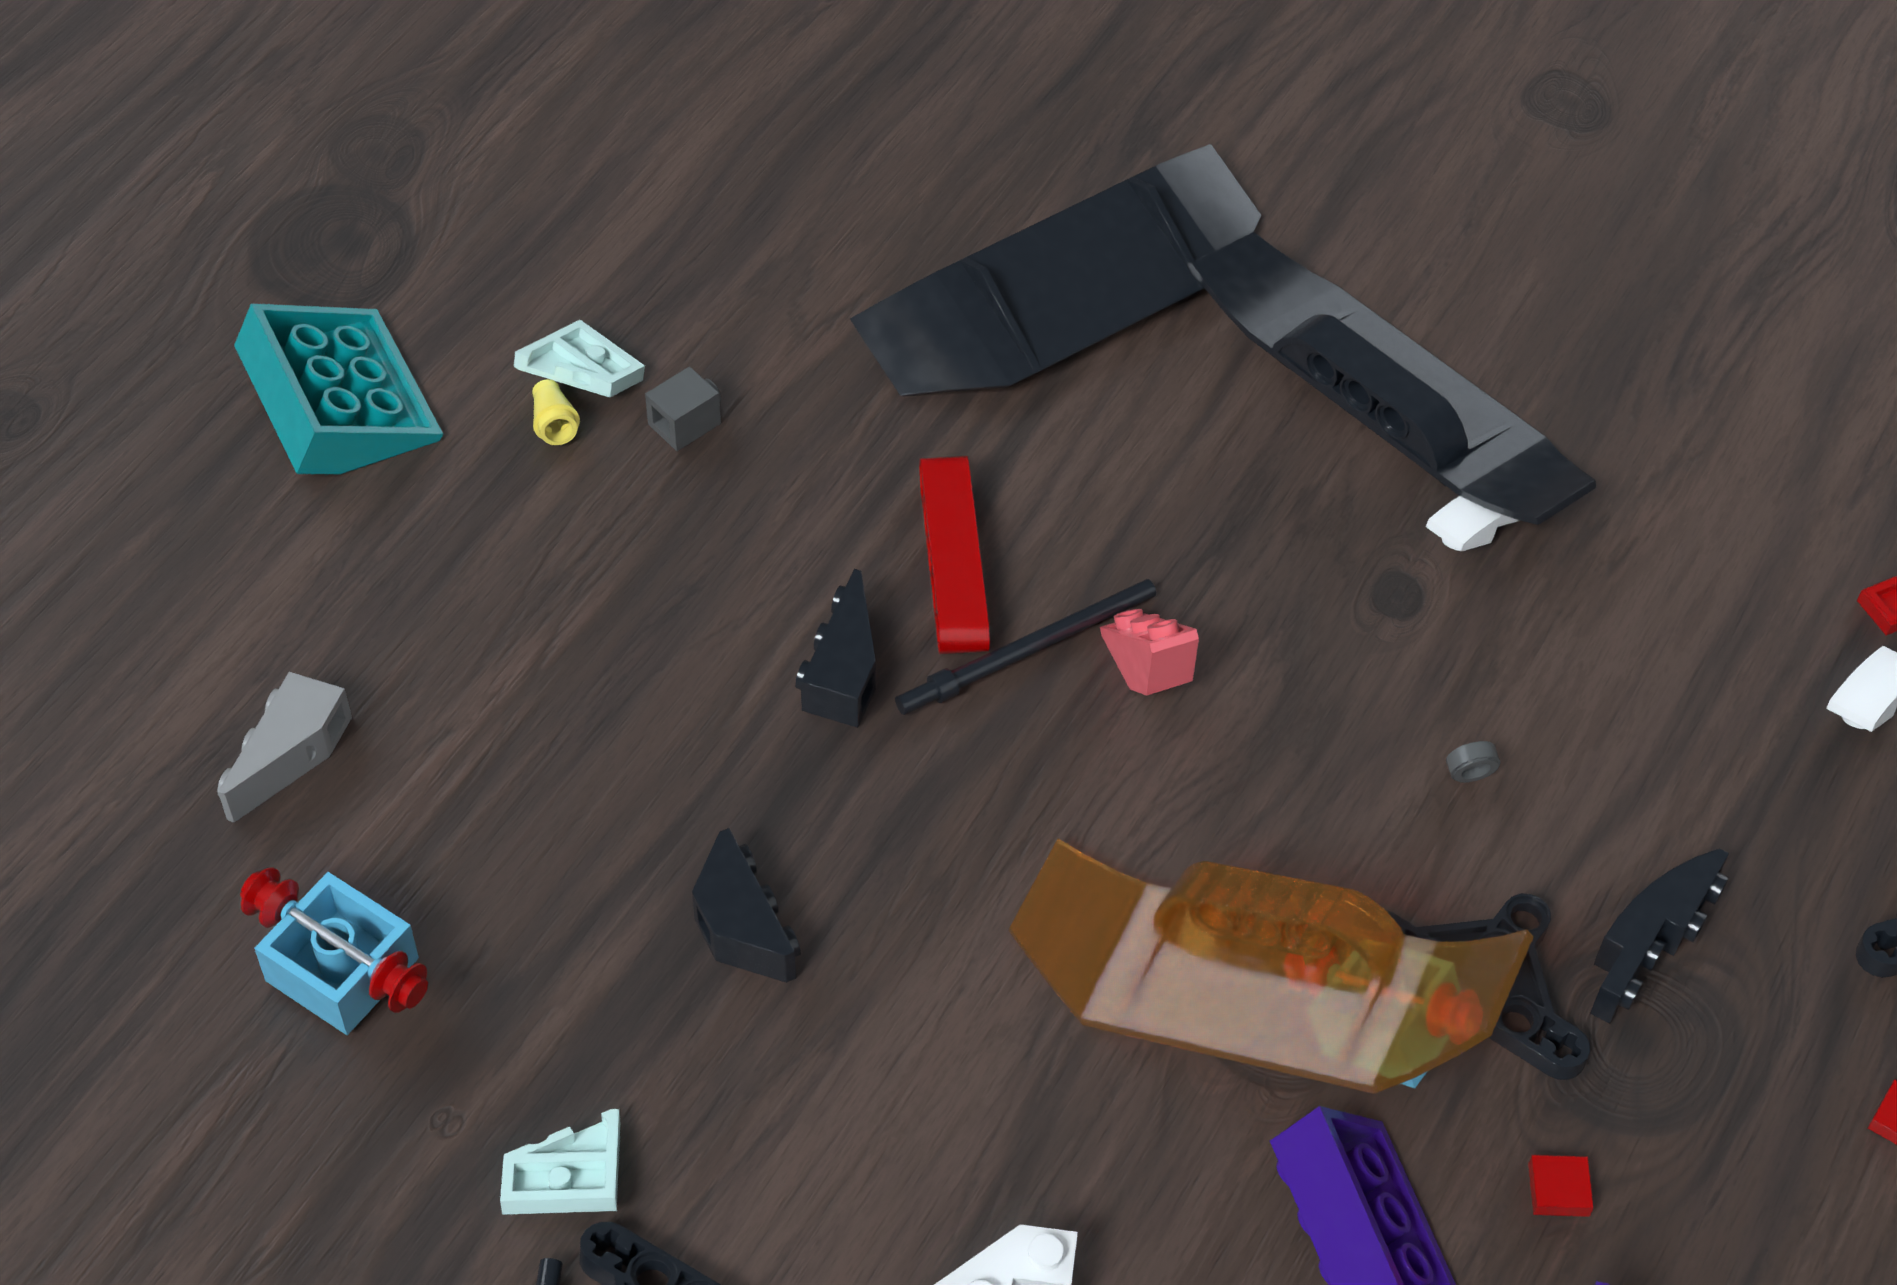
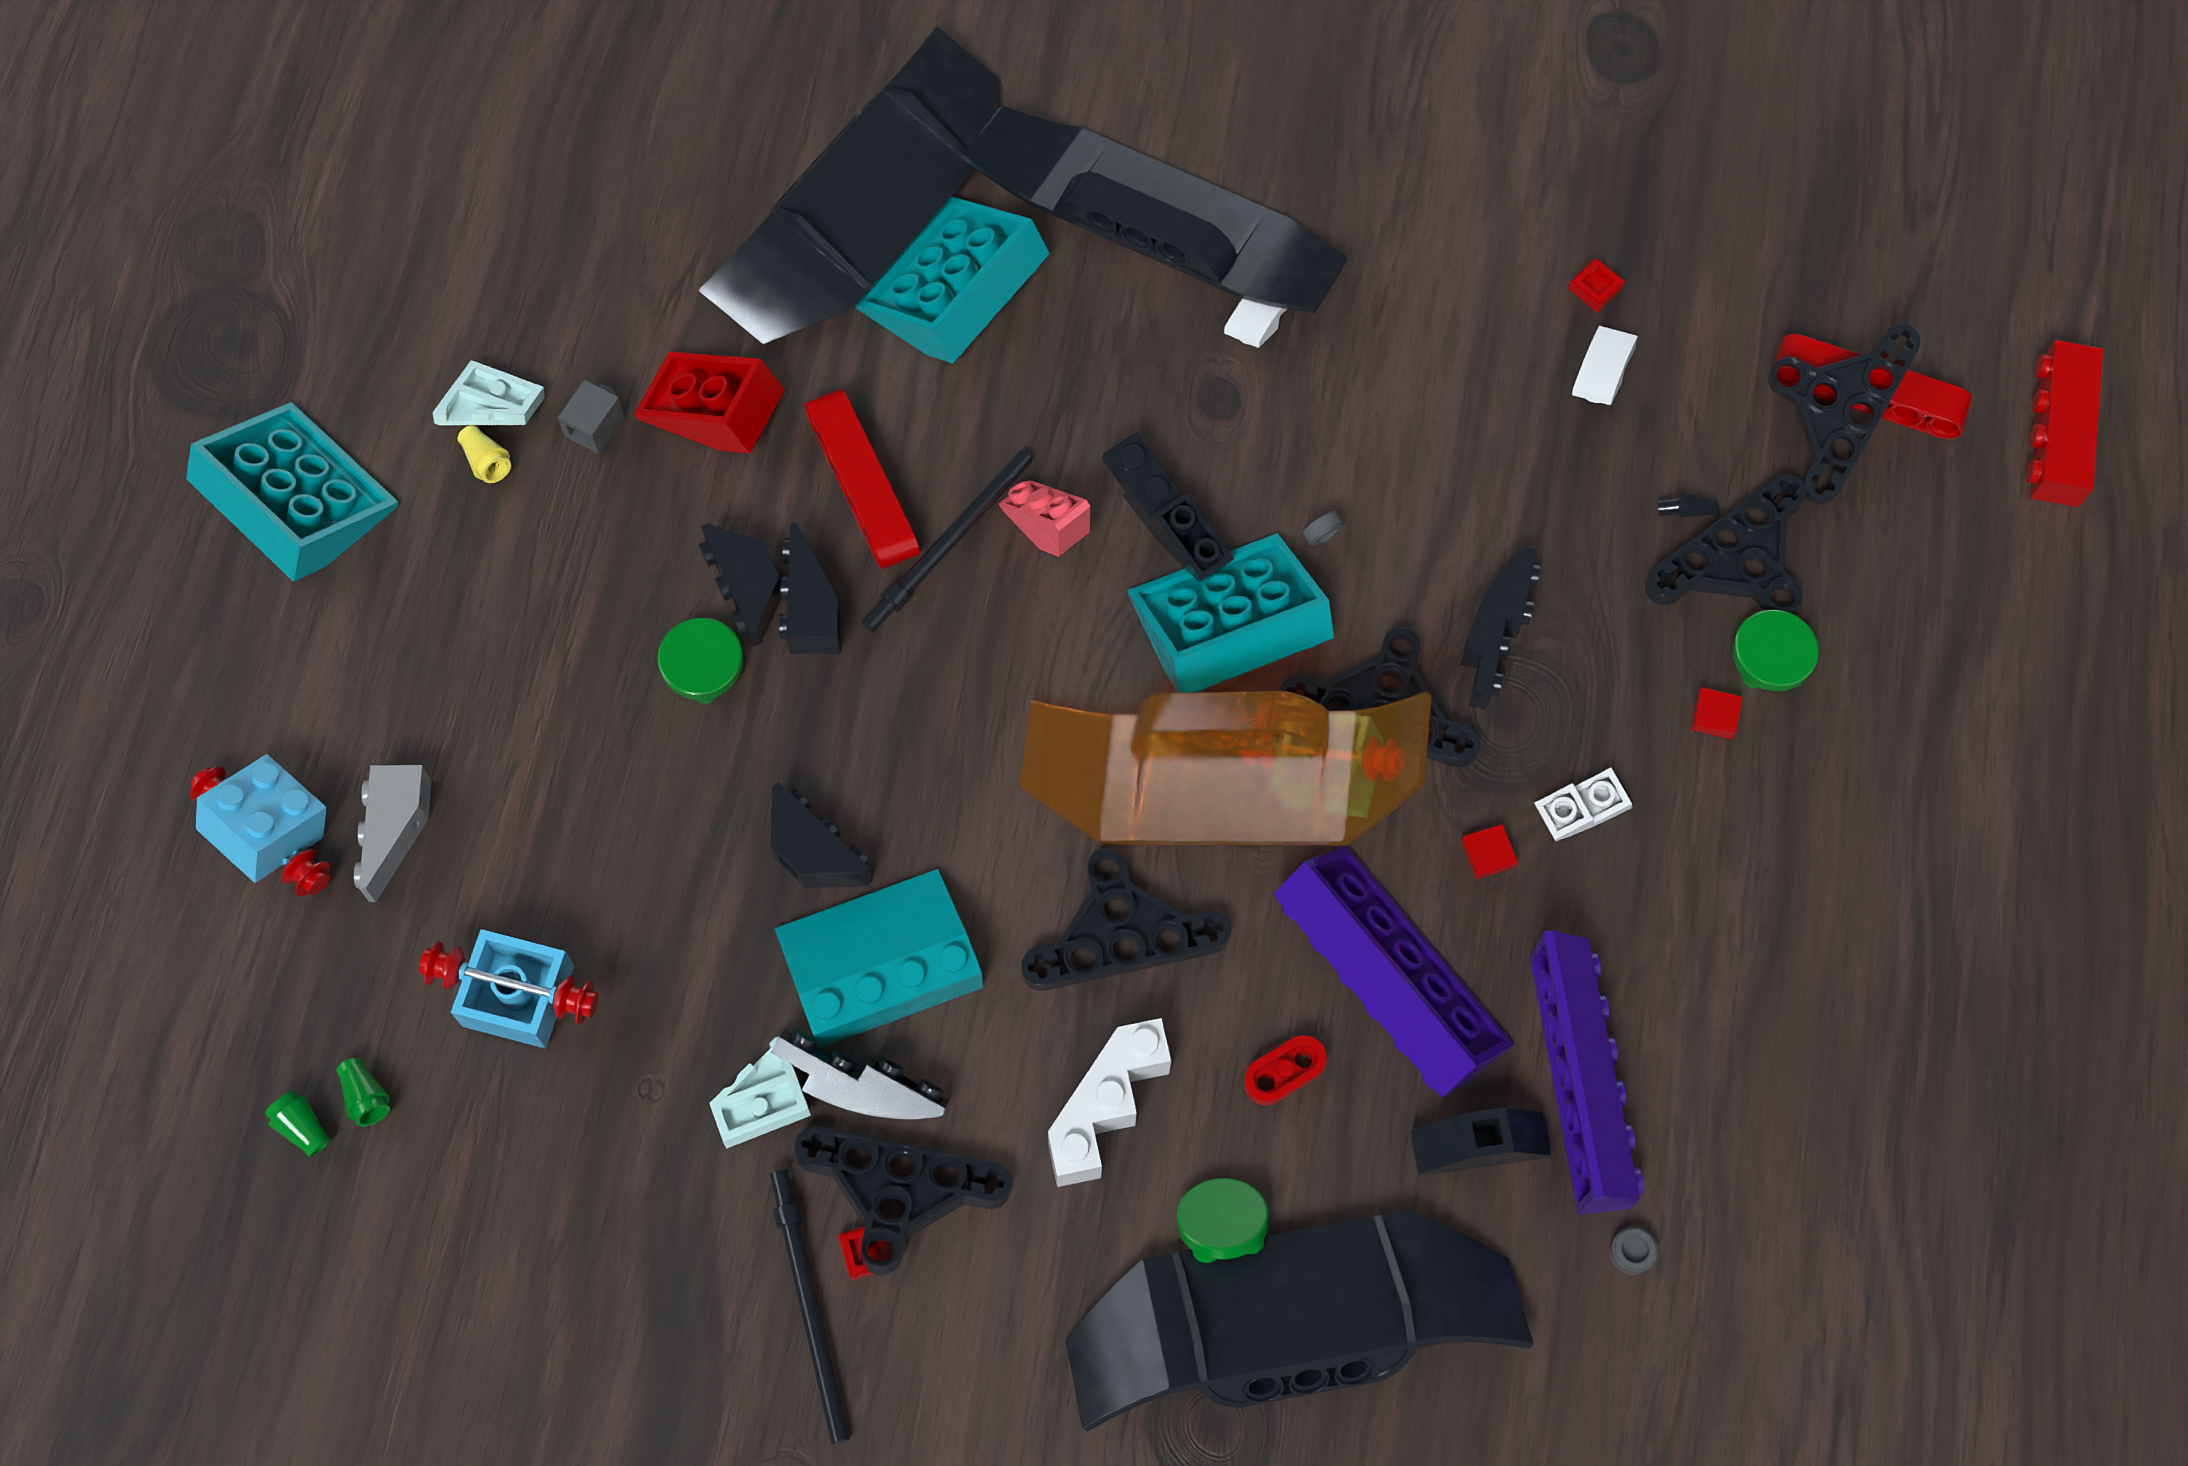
camera: 20 degrees left, 15 degrees up
(37, 1020) = (297, 1122): none -> green cone
(122, 1015) = (362, 1094): none -> green cone
(151, 695) = (263, 822): none -> medium azure brick
(698, 682) = (700, 659): none -> green tile
(699, 1202) = (875, 1092): none -> slope
(767, 1065) = (879, 958): none -> teal slope
(783, 614) = (744, 577): none -> black slope
(822, 430) = (712, 399): none -> red slope
(1097, 1129) = (1142, 925): none -> black beam
(1138, 387) = (955, 277): none -> teal slope
(1290, 686) = (1165, 511): none -> black slope
(1334, 819) = (1235, 618): none -> teal slope
(1700, 1172) = (1584, 805): none -> white slope

